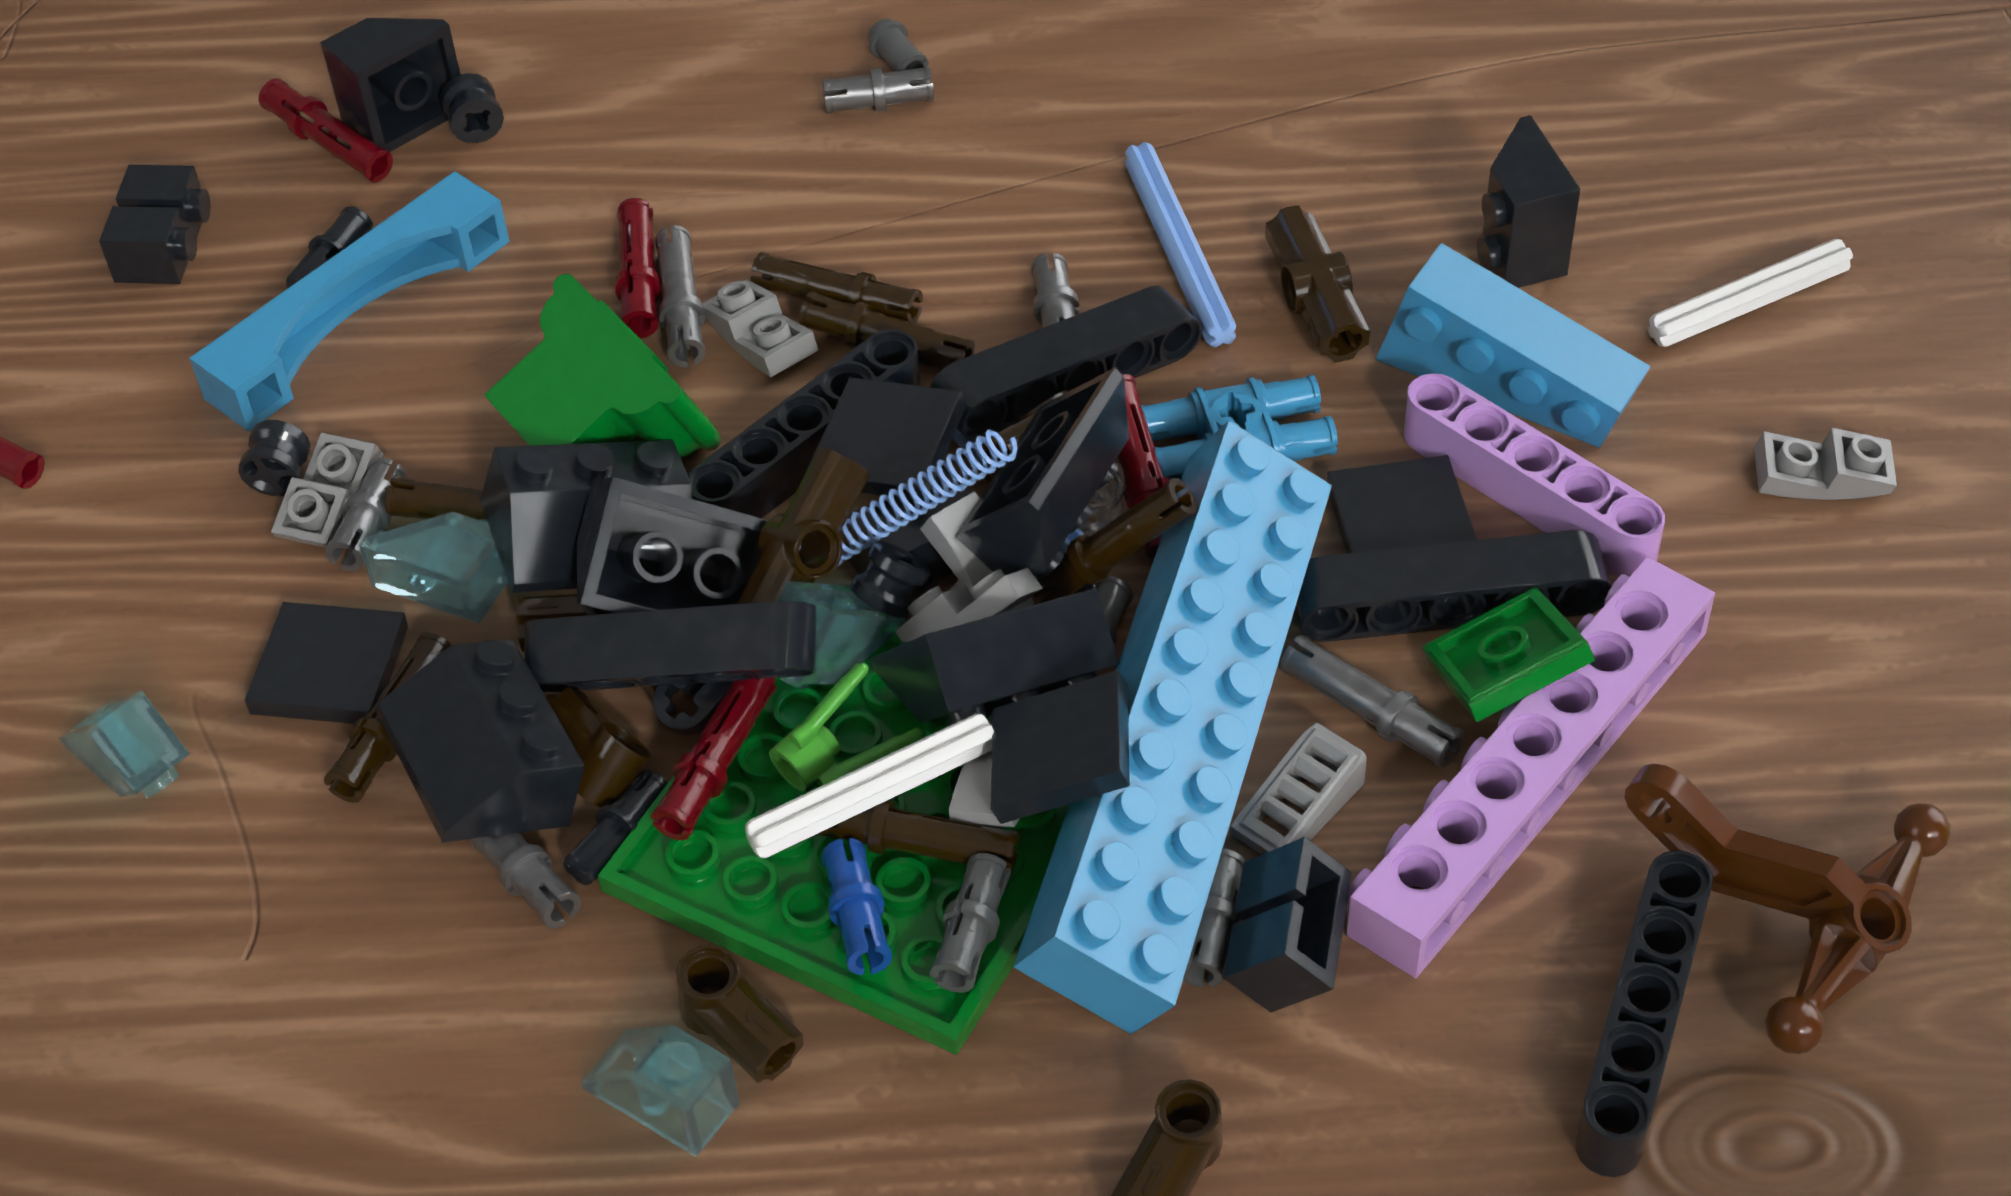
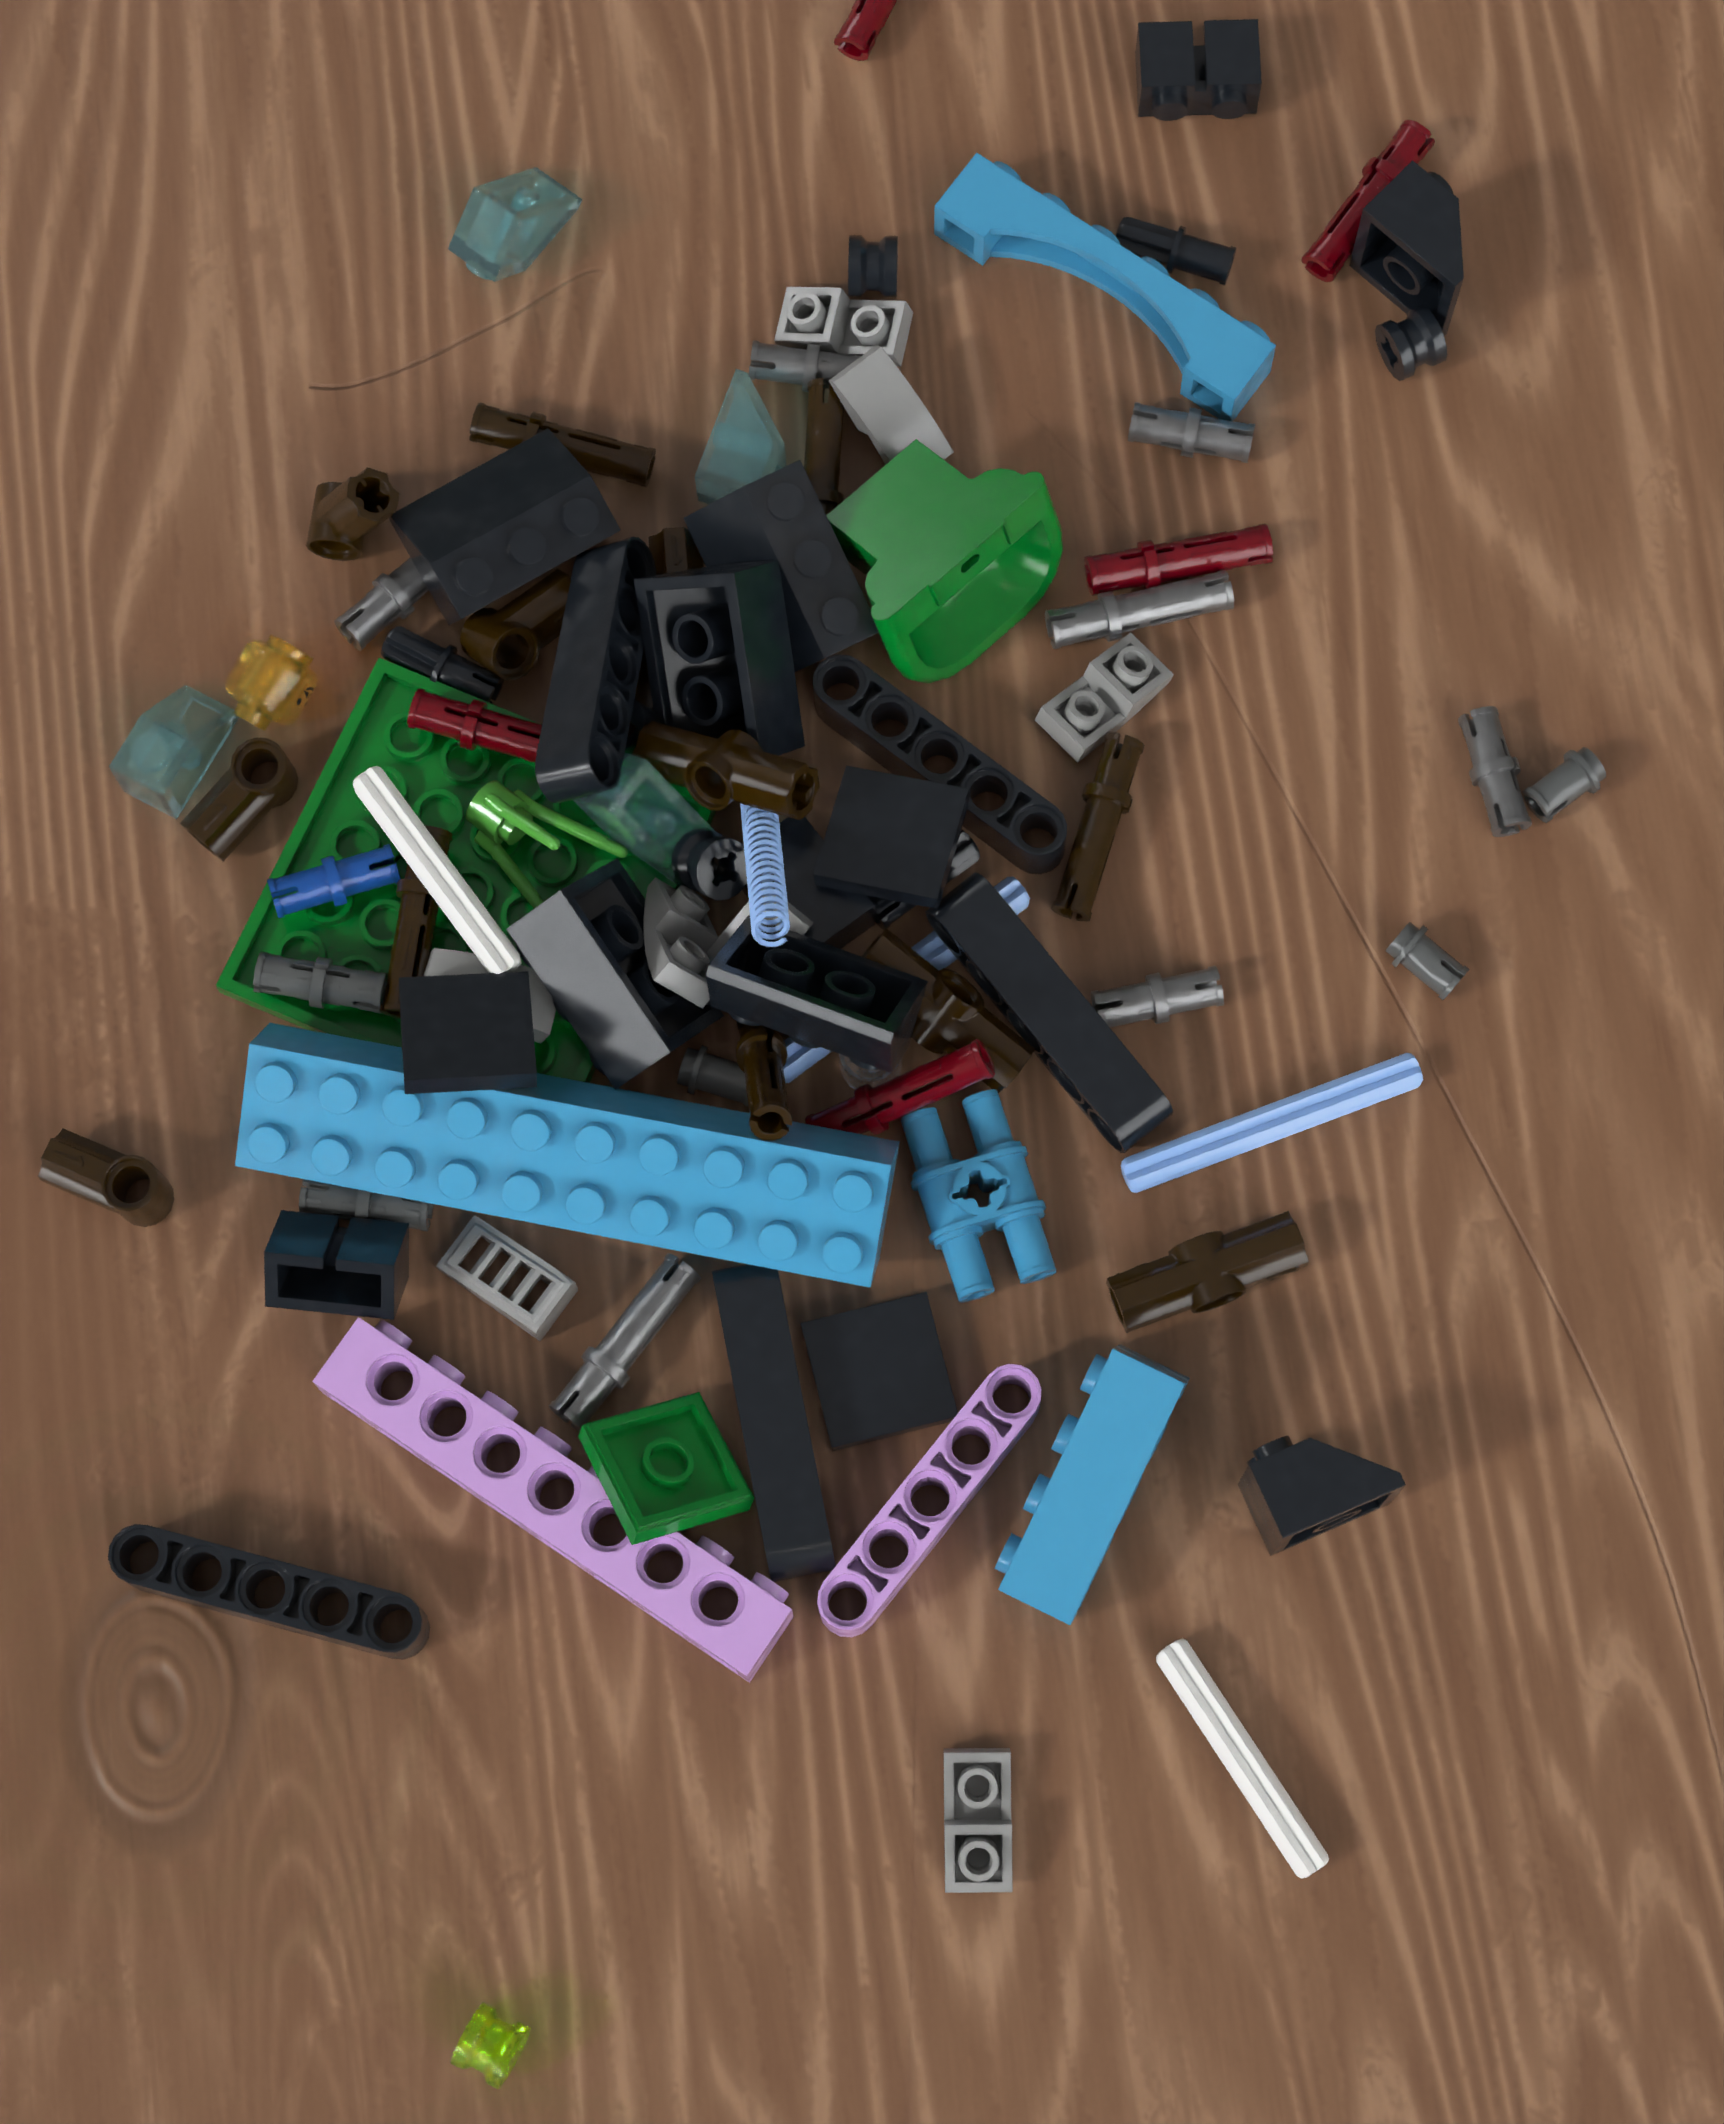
camera: 85 degrees right, 25 degrees up
(326, 662) = (631, 375): black tile -> none
(424, 898) = (348, 513): none -> dark brown piece
(435, 442) = (886, 406): none -> light grey slope
(513, 255) = (1191, 432): none -> flat silver pin
(603, 980) = (271, 682): none -> clear yellow head
(801, 278) = (1155, 789): dark brown pin -> none
(1032, 143) = (1426, 960): none -> dark grey pin
(1849, 913) = (390, 1809): reddish brown piece -> none

